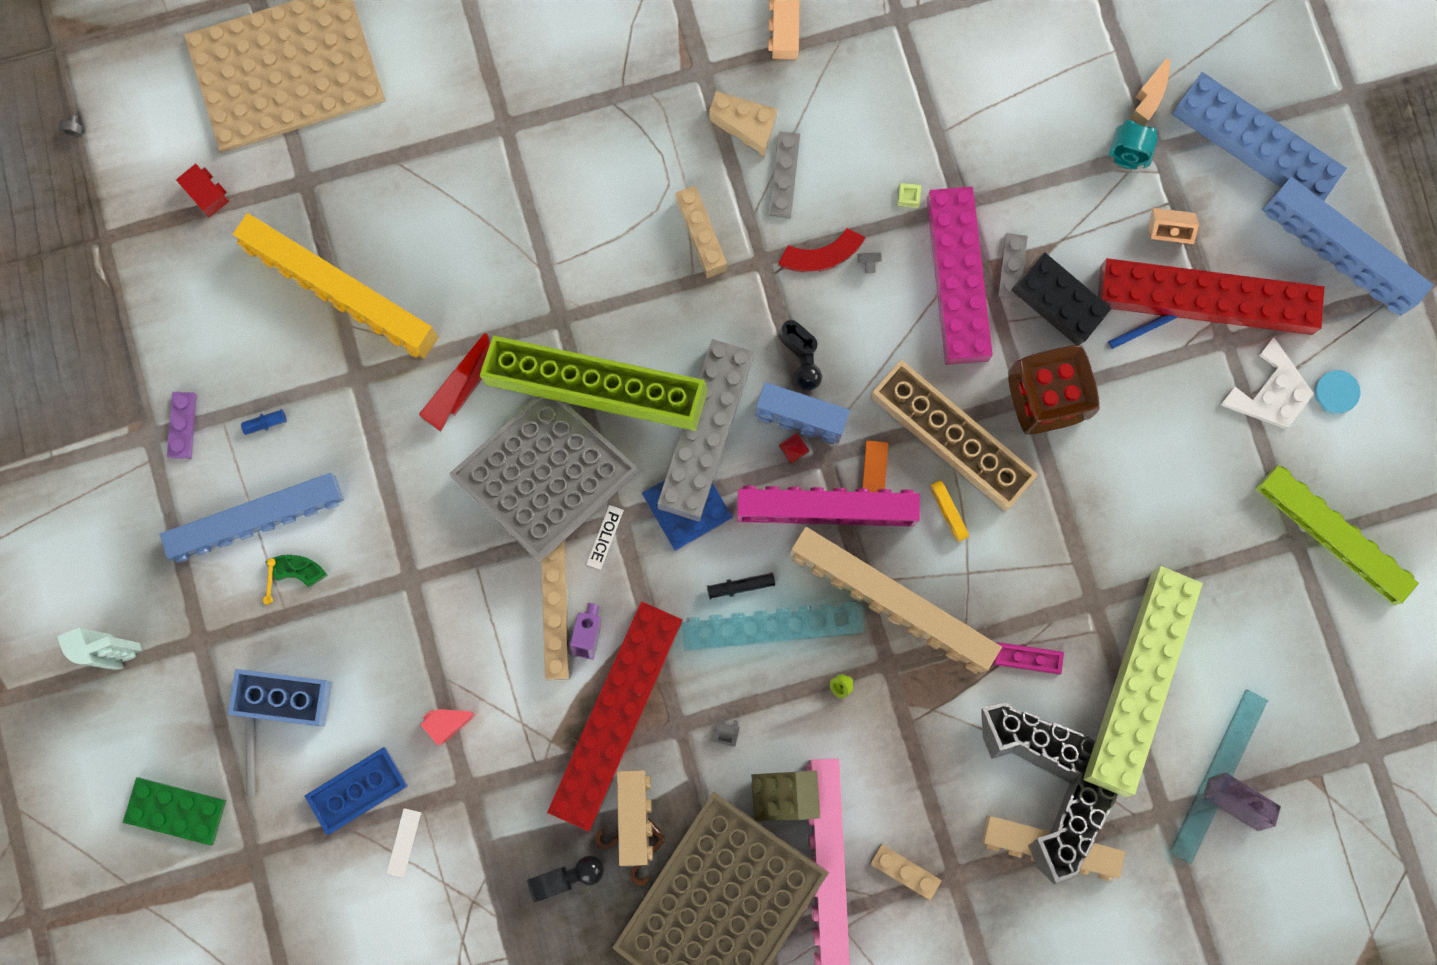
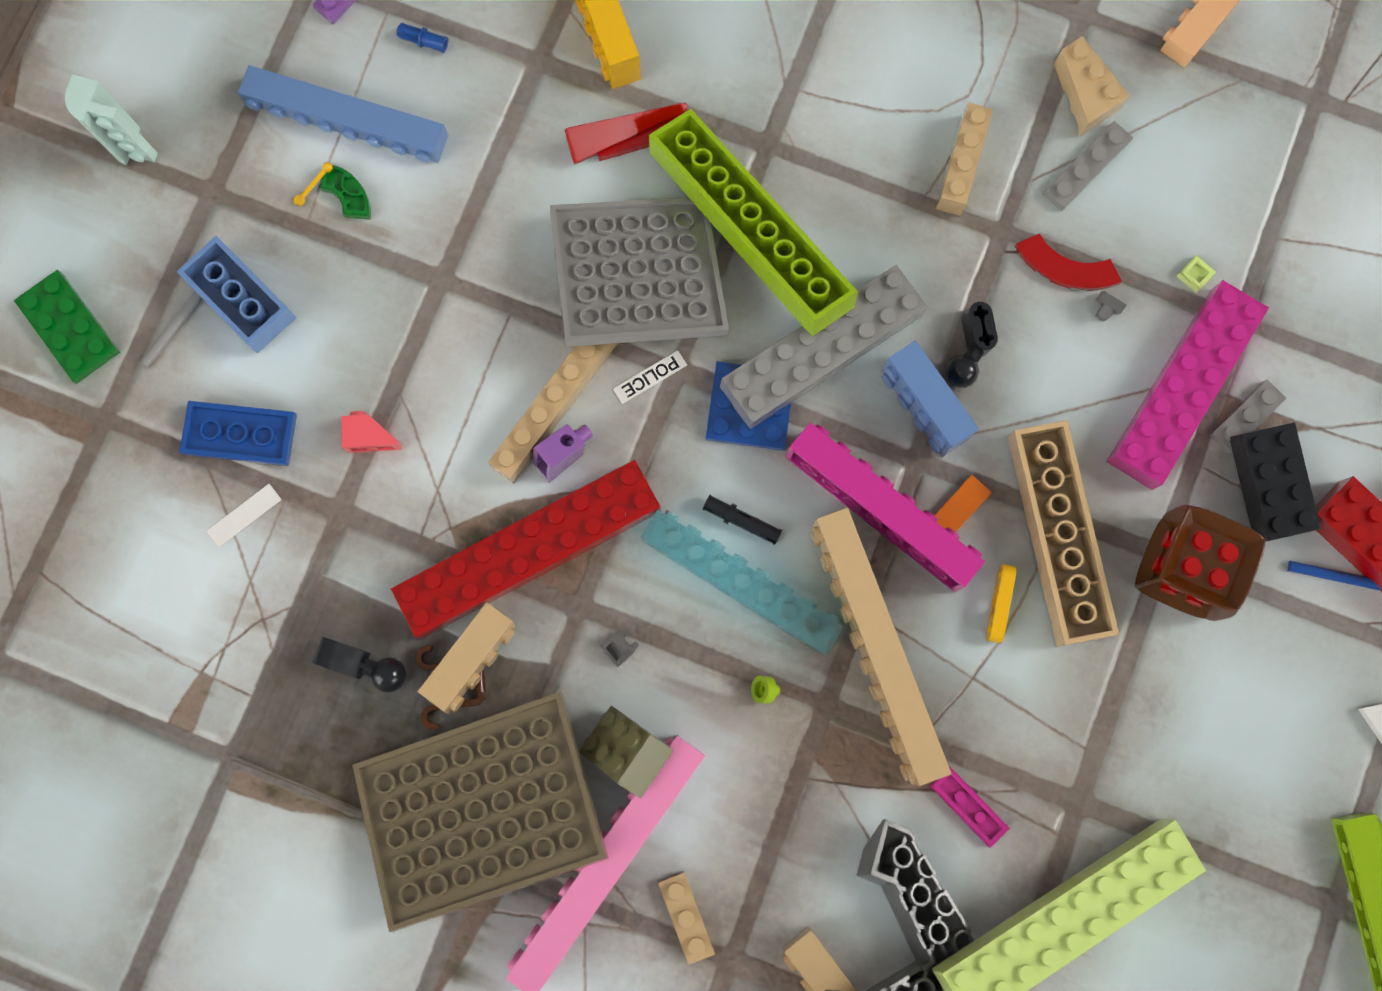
camera: 40 degrees right, 0 degrees up
(794, 448) = (895, 429): red tile -> none

